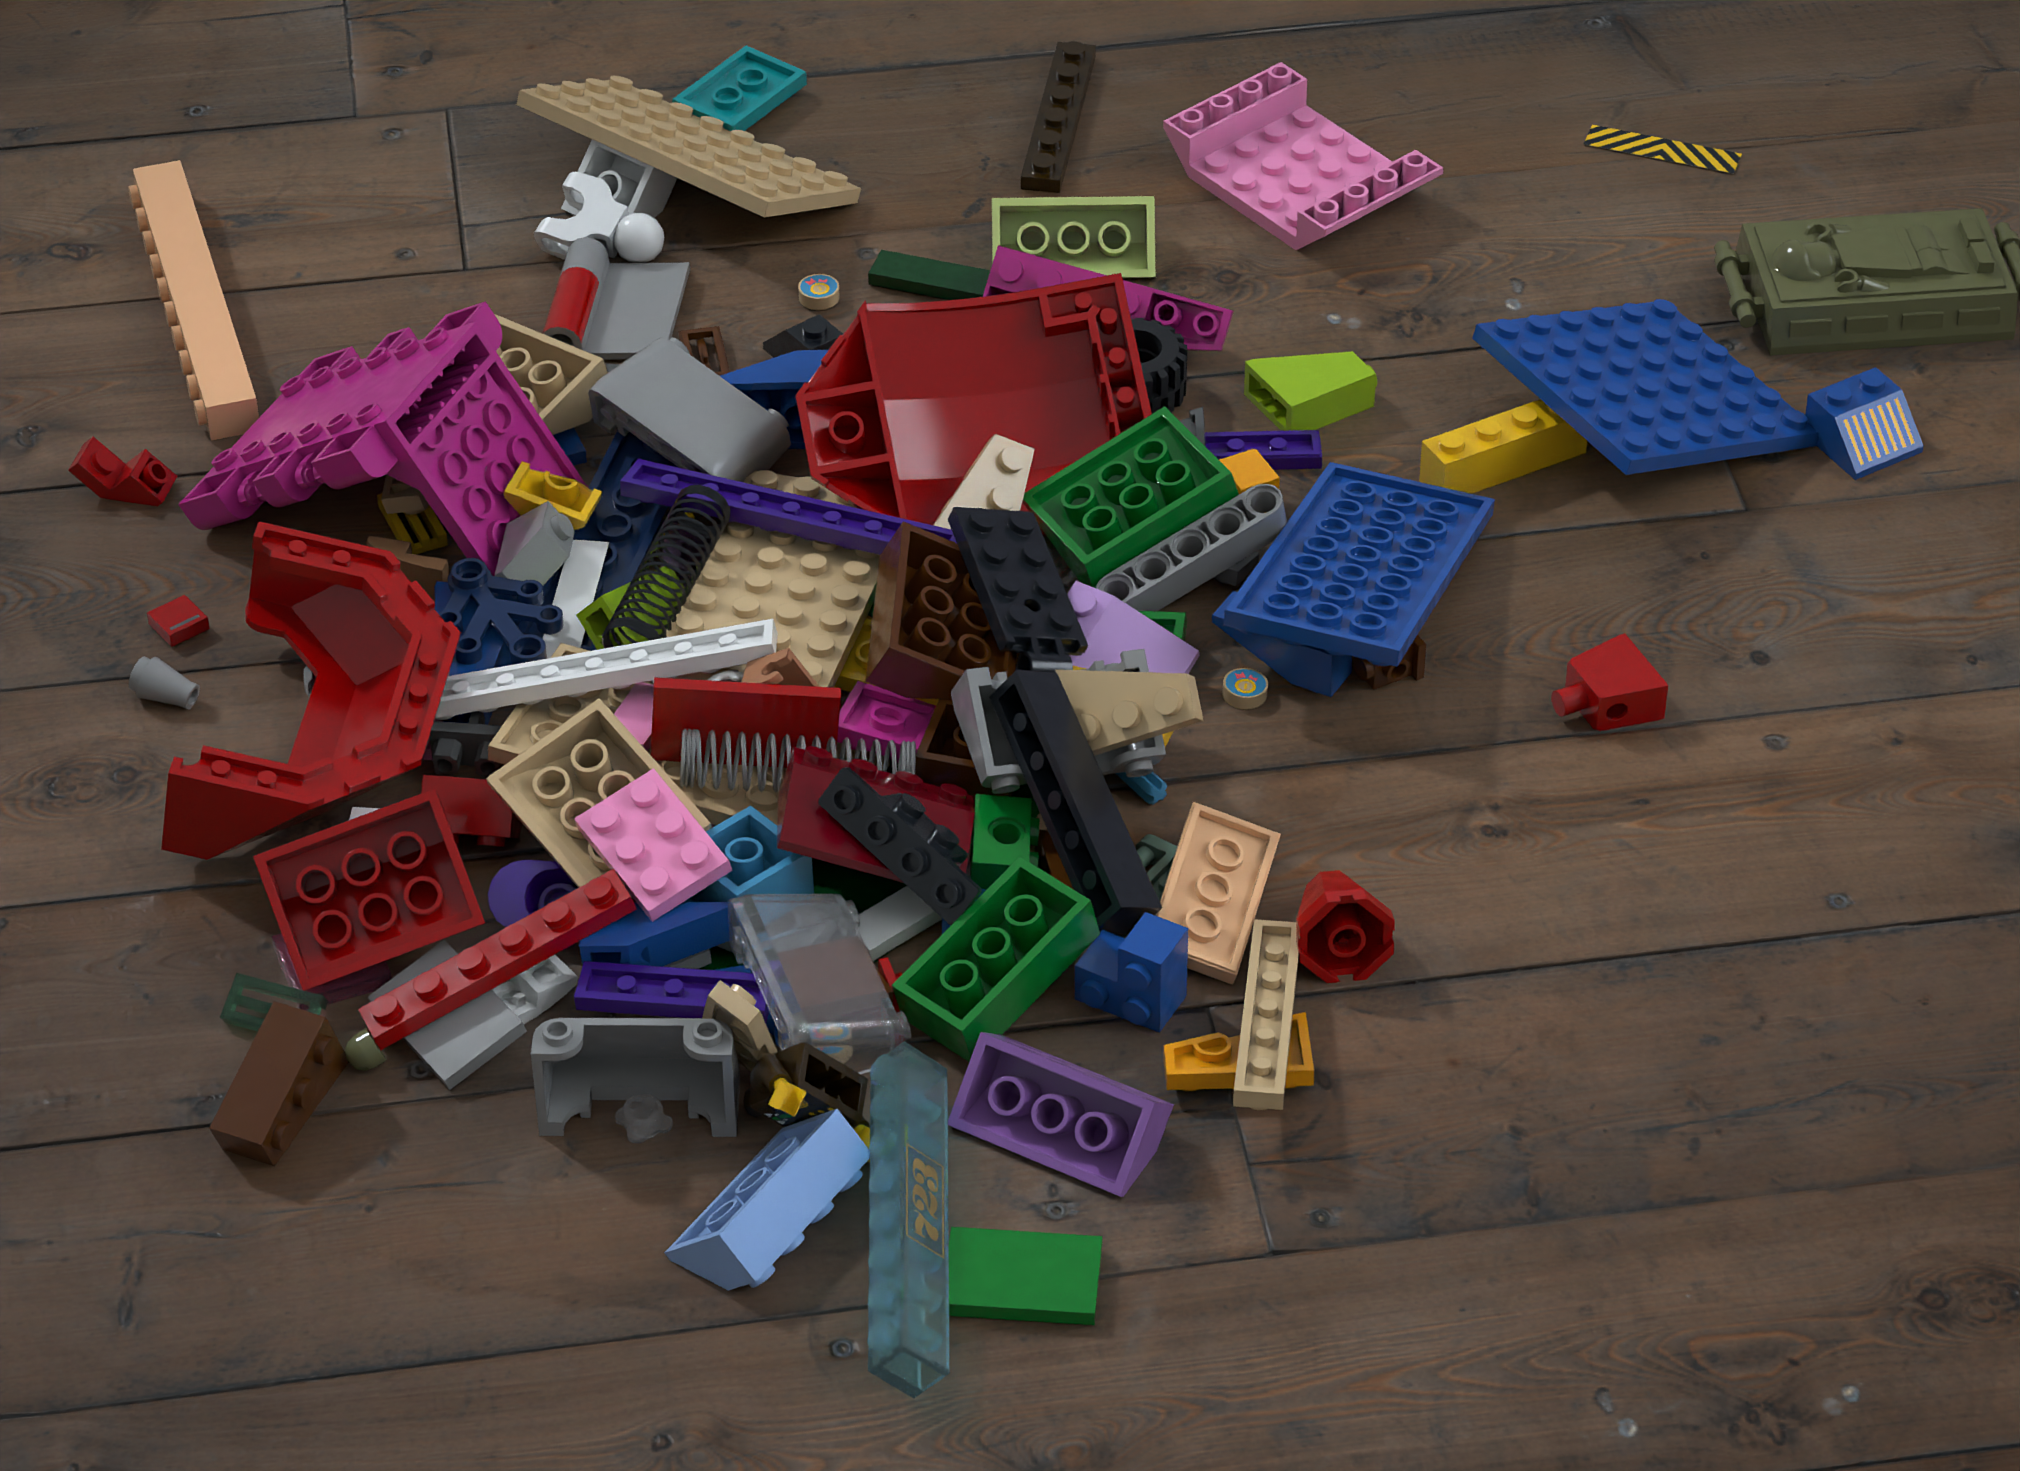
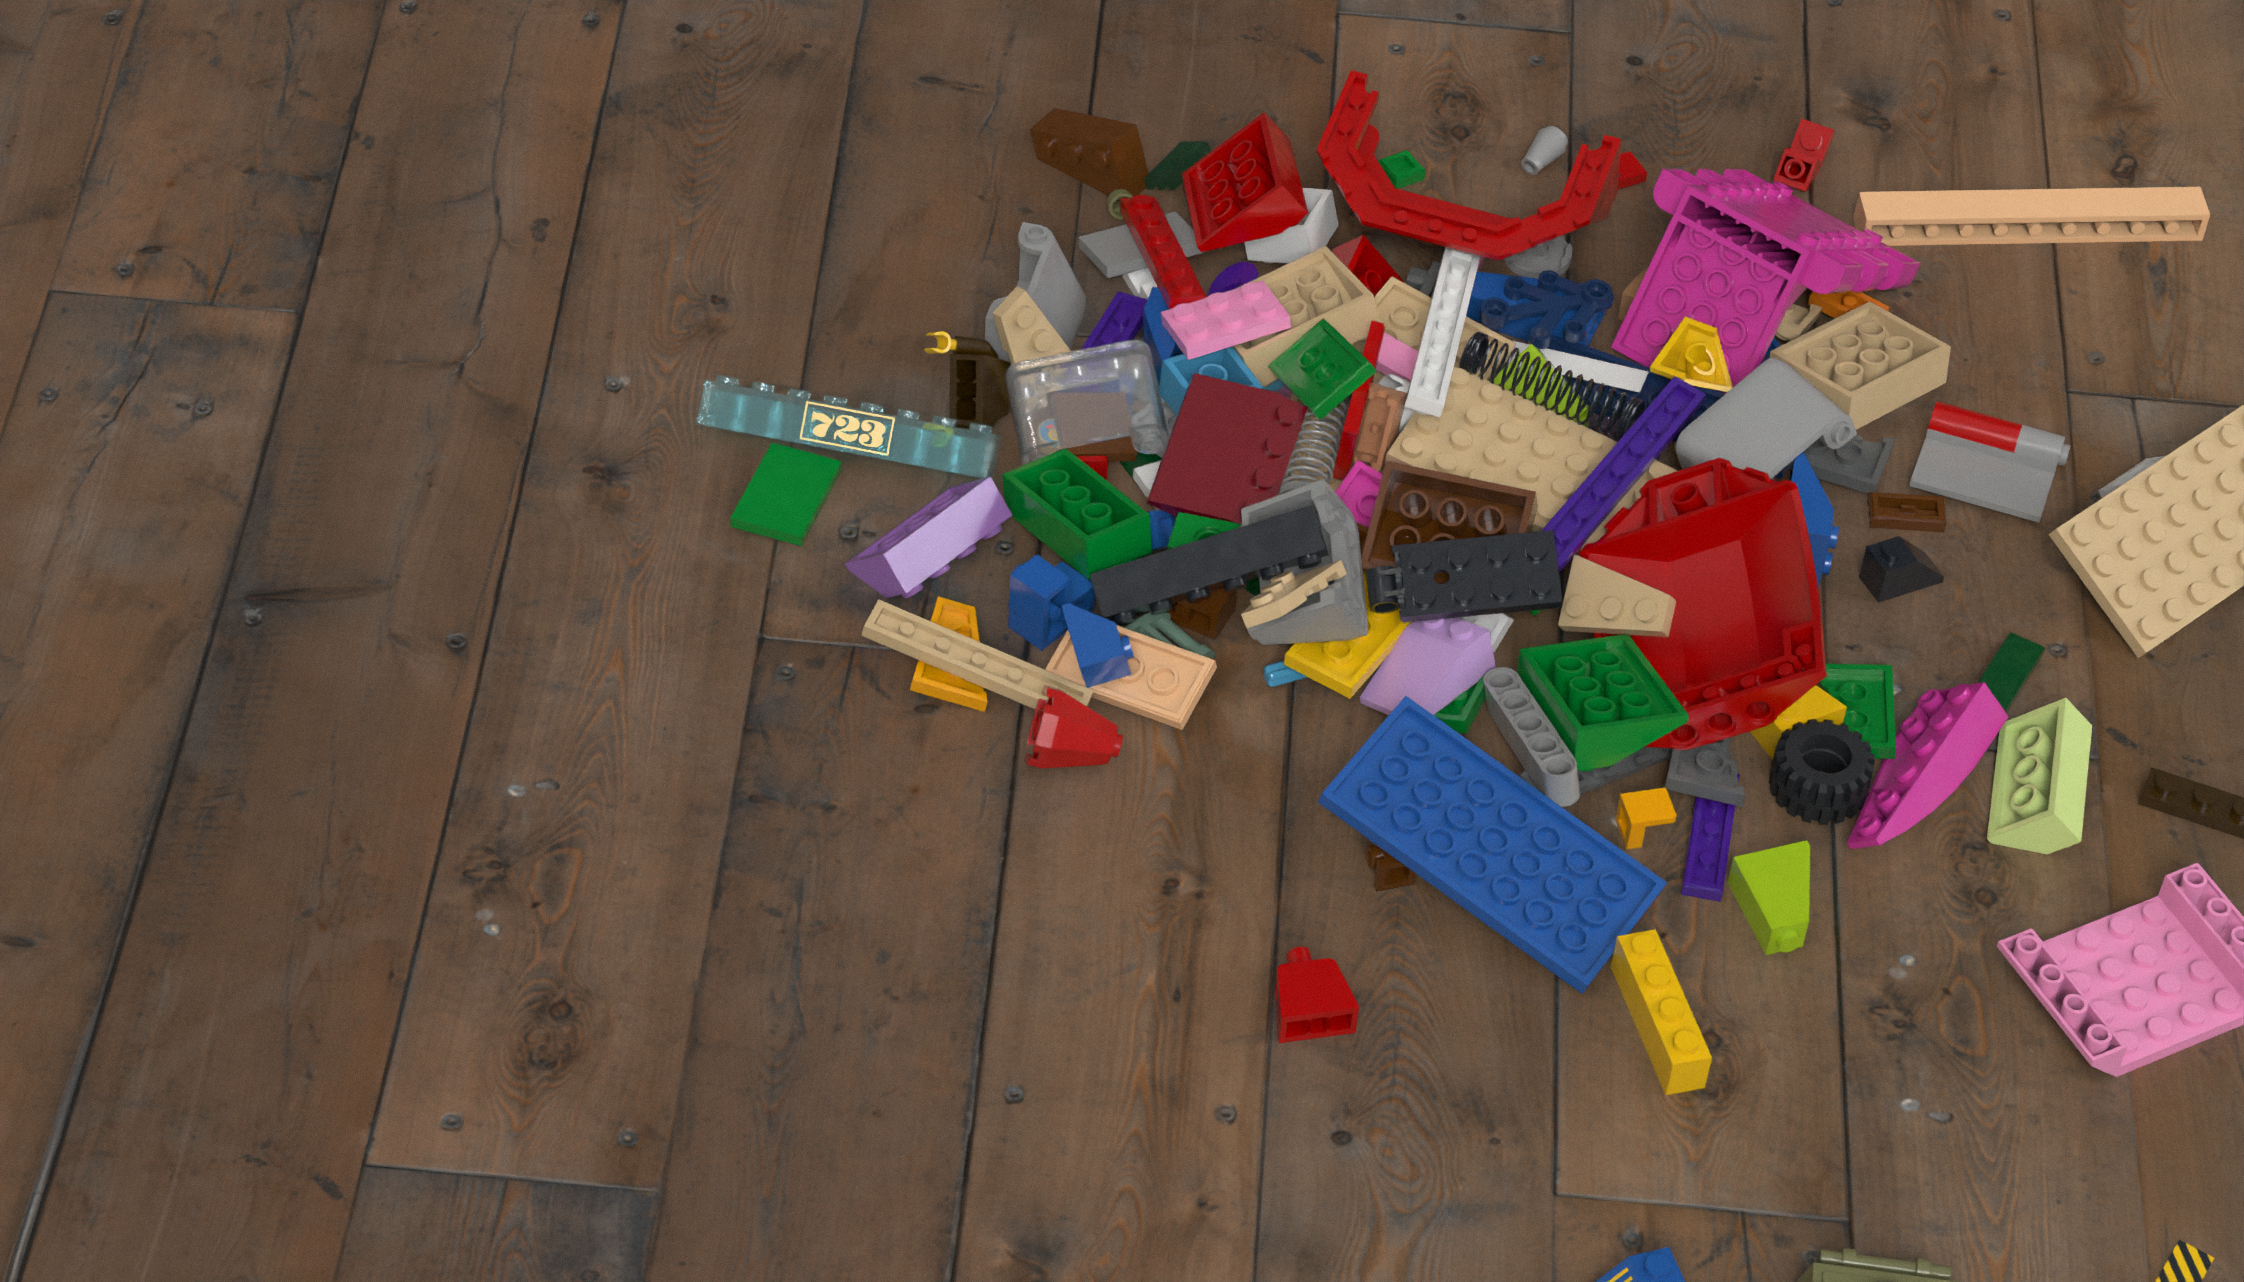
camera: 100 degrees right, 5 degrees up
(535, 545) = (1625, 339): light grey slope -> none
(633, 236) = (2096, 462): white piece -> none
(727, 738) = (1322, 368): none -> green tile
(772, 1202) = (887, 366): light blue slope -> none
(818, 291) = (1993, 600): tile -> none
(904, 841) = (1185, 457): black bracket -> none
(1219, 900) = (1097, 646): none -> blue slope
(1646, 386) = (1716, 1129): blue plate -> none

